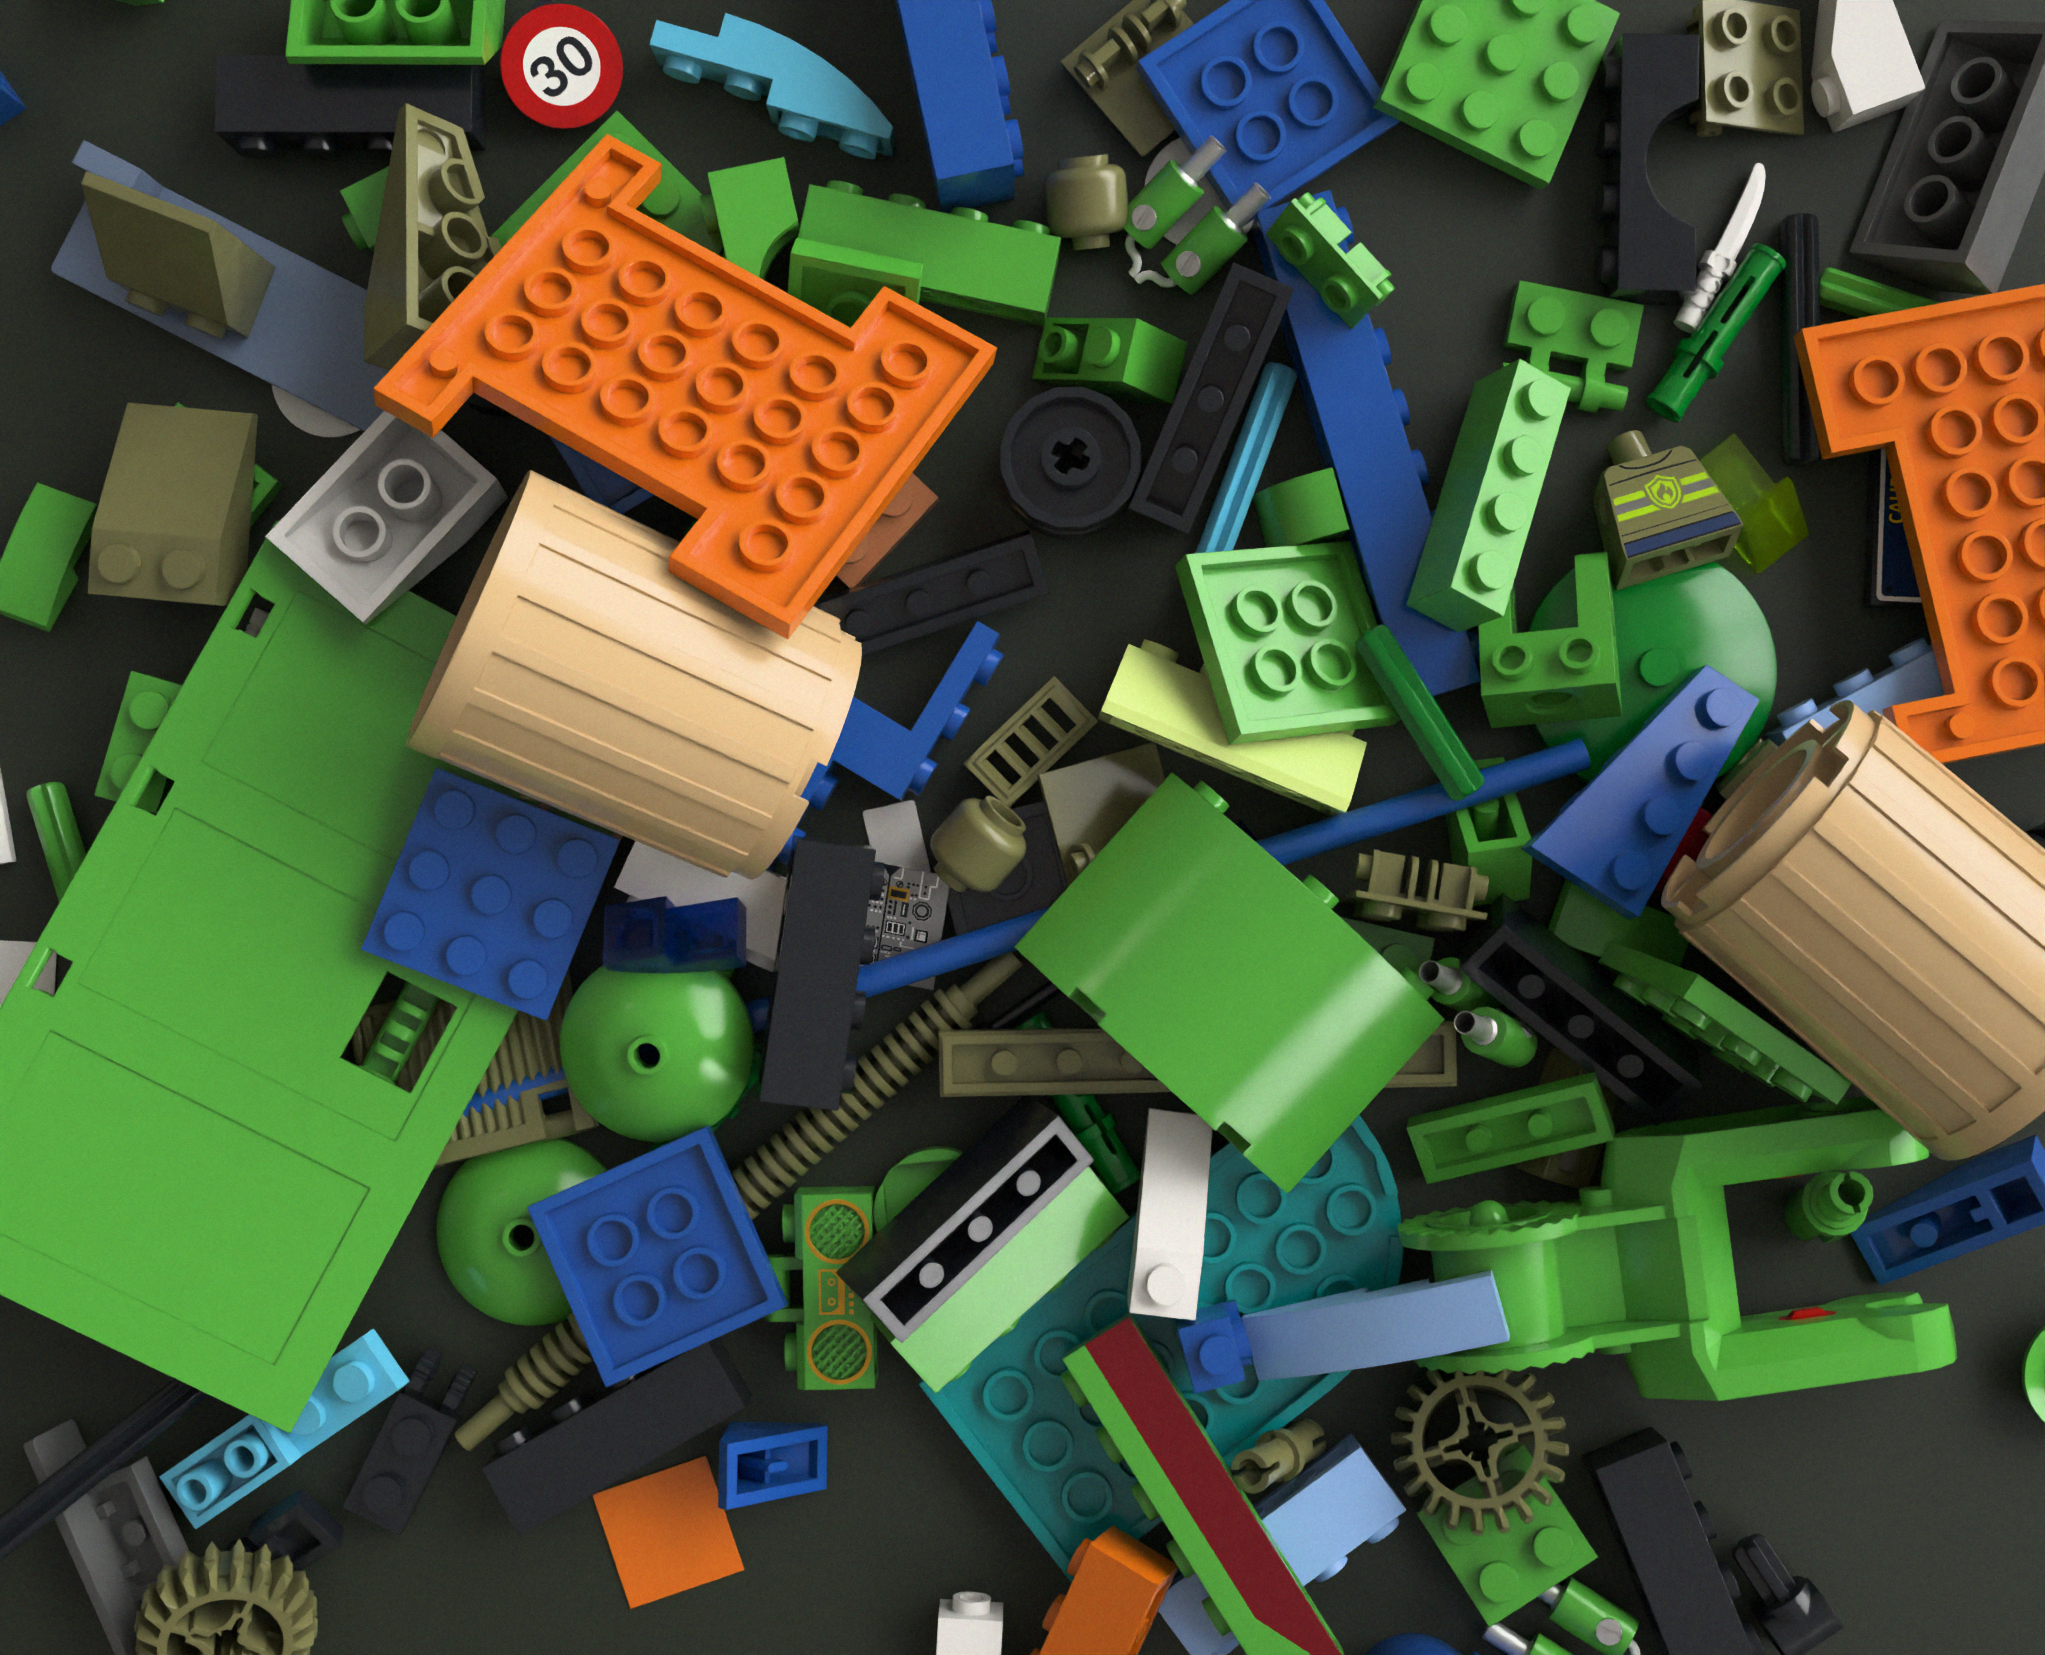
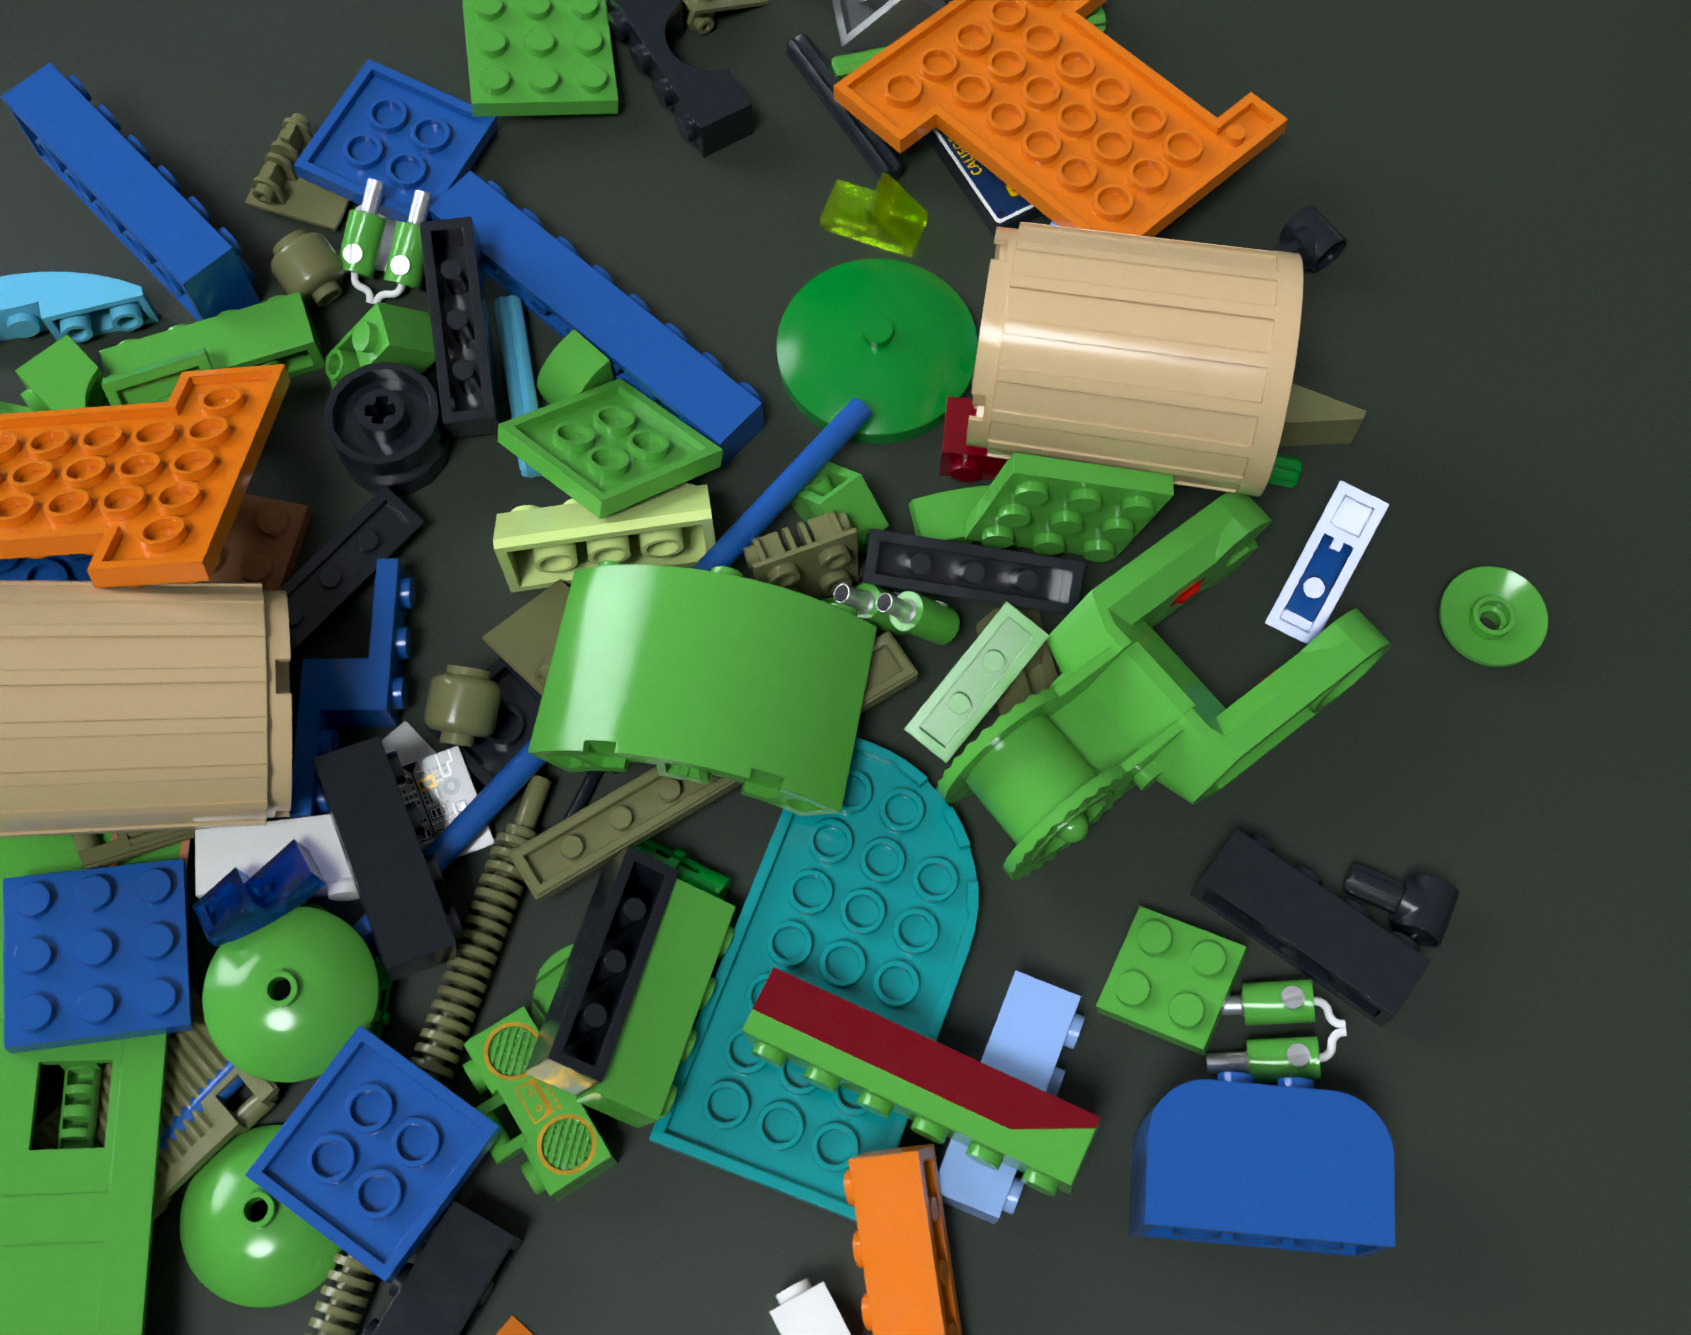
camera: 30 degrees left, 20 degrees down
(770, 1461) = (564, 1277): blue slope -> none
(987, 773) = (444, 638): olive slope -> none
(1170, 1216) = (766, 886): white slope -> none
(1214, 1346) = (854, 958): blue brick -> none
(1278, 1455) = (957, 1014): olive pin -> none
(1309, 240) = (492, 206): bright green hinge -> none
(1376, 1327) = (962, 862): light blue slope -> none
(1419, 713) = (729, 439): green axle -> none
(1450, 1454) = (1123, 881): olive gear -> none
(1489, 497) = (692, 288): bright green brick -> none
(1555, 671) = (803, 366): bright green brick -> none
(1575, 329) = (690, 179): bright green plate -> none
(1637, 809) = (918, 411): blue wing -> none
(1660, 512) = (818, 243): olive torso -> none
(1674, 390) = (783, 146): green pin -> none
(1720, 264) = (762, 93): white piece -> none
(1829, 1206) = (1233, 599): bright green arm -> none

